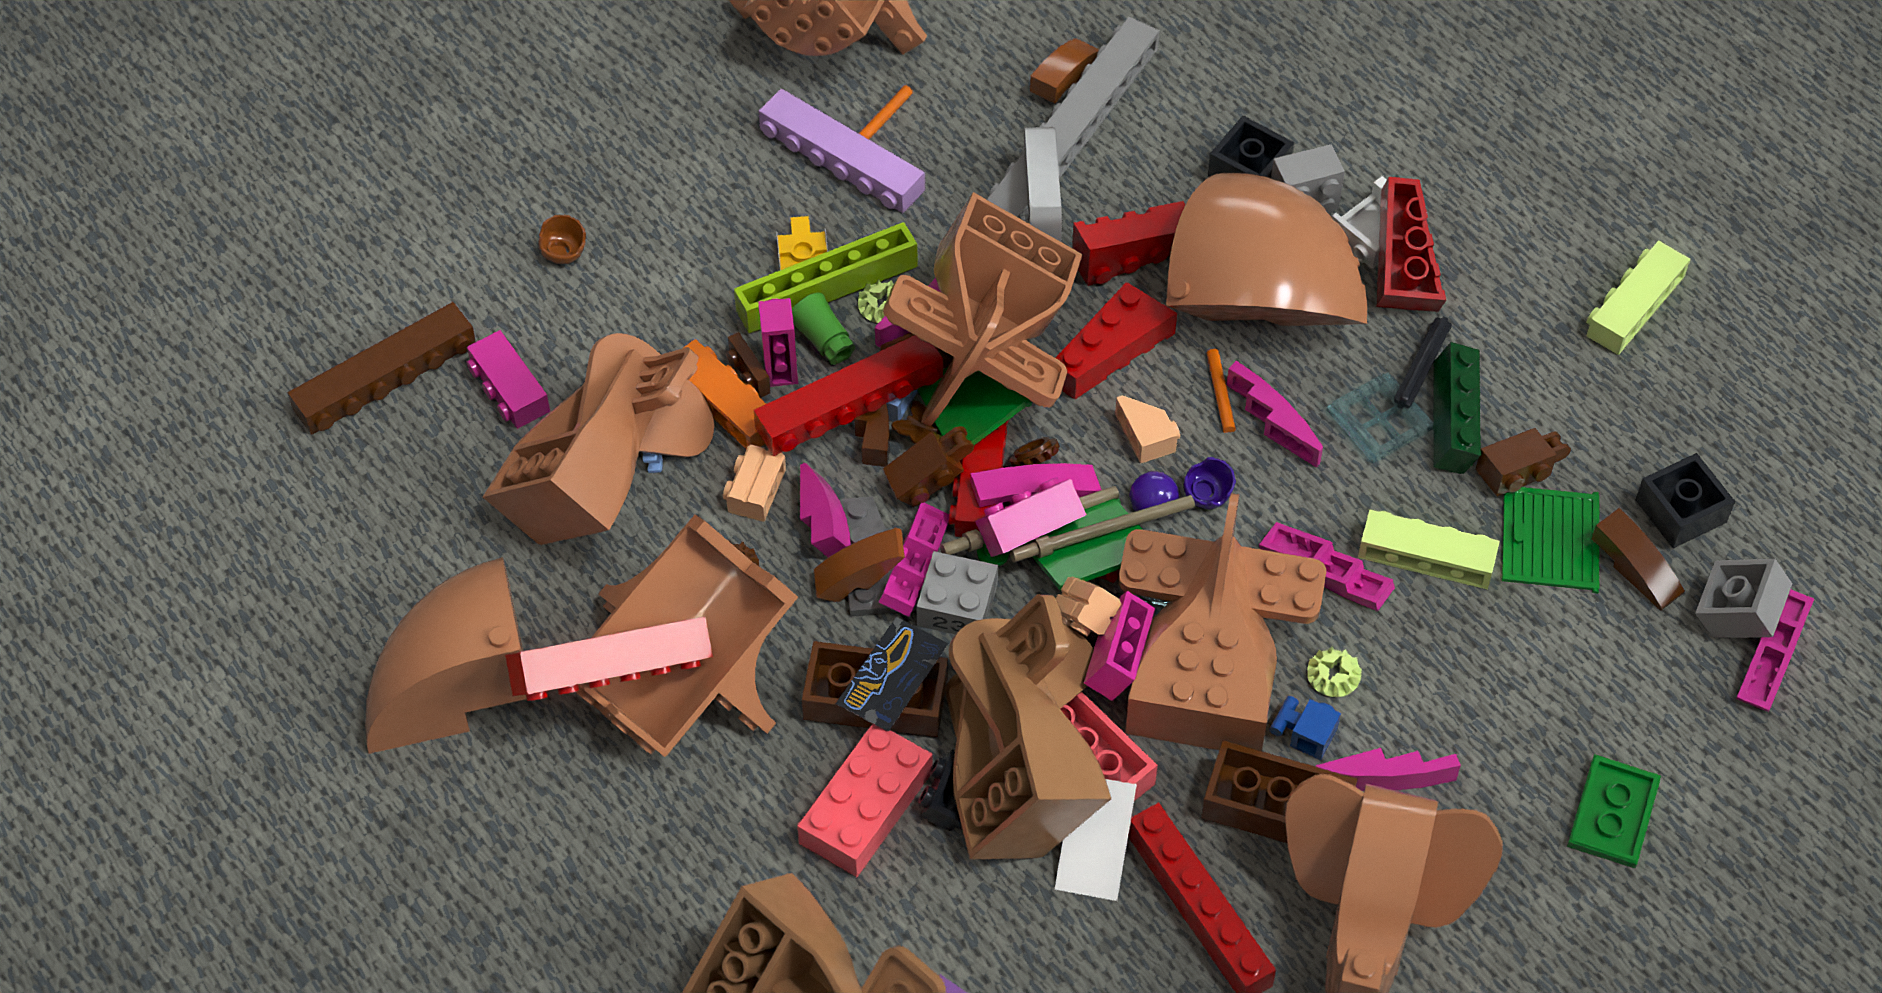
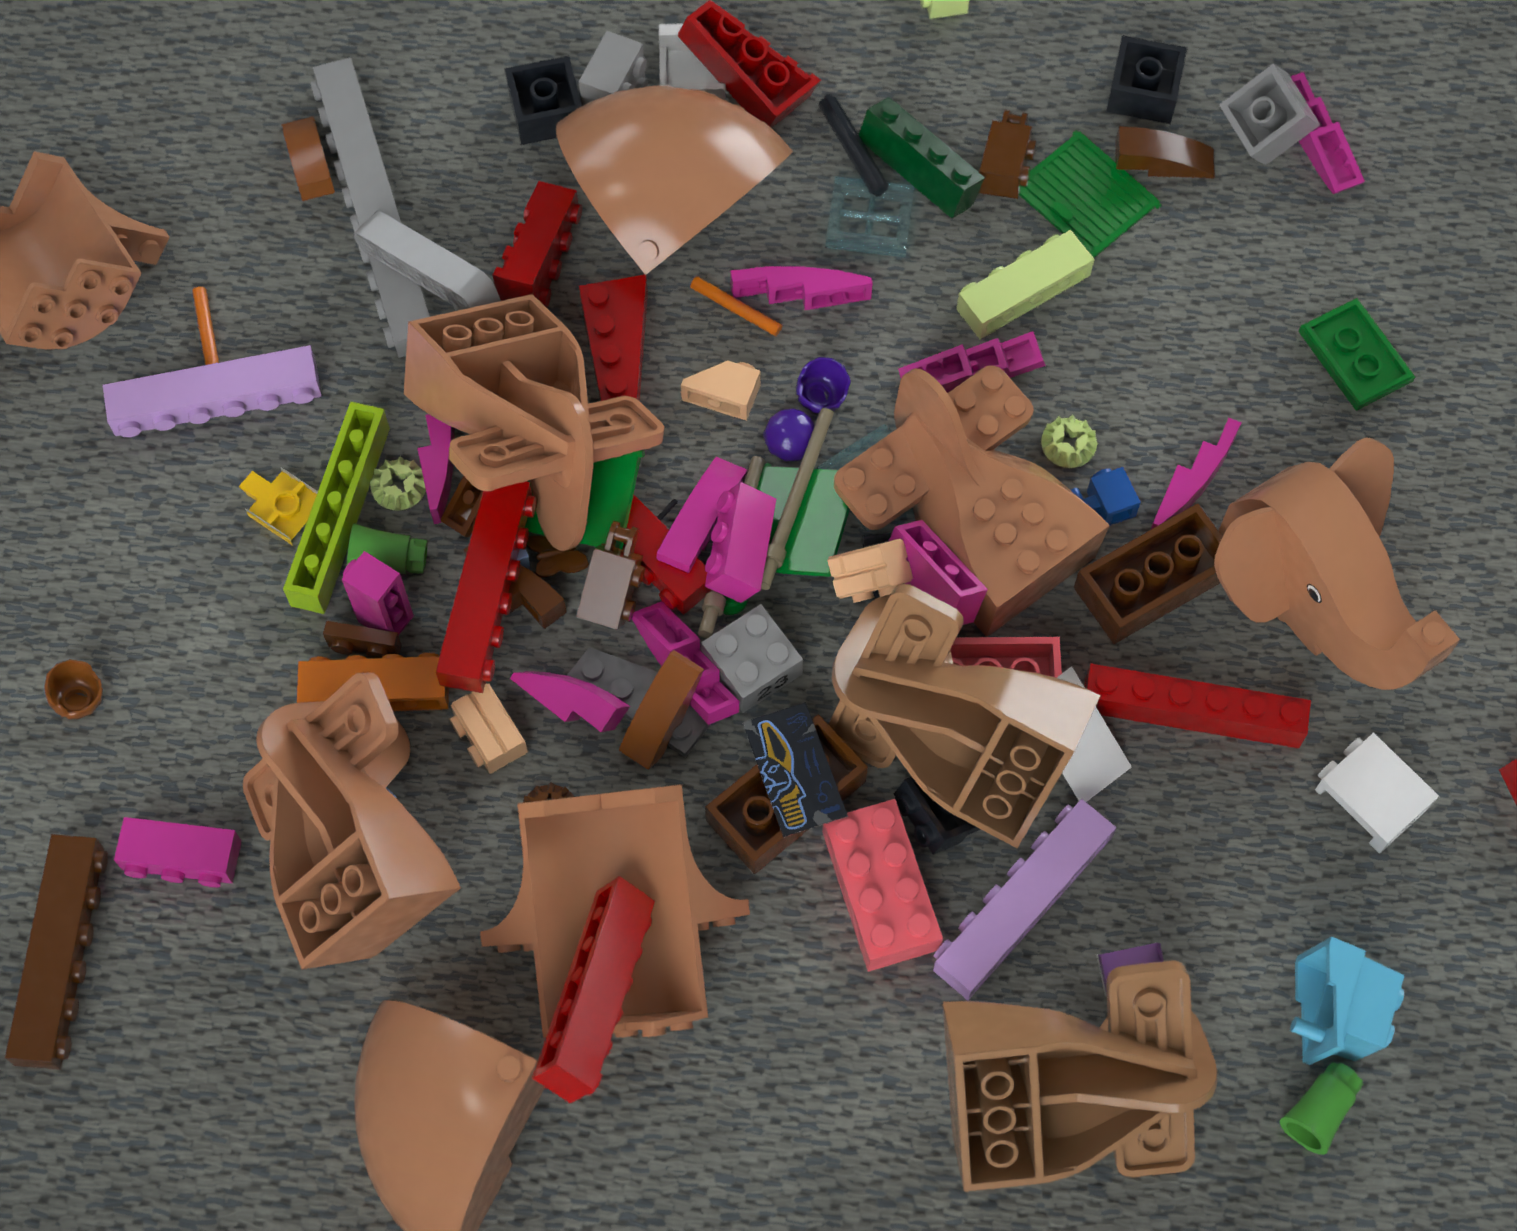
camera: 50 degrees left, 10 degrees up
(942, 897) = (1023, 899): none -> lavender brick
(1035, 452) = (672, 478): reddish brown gear -> none

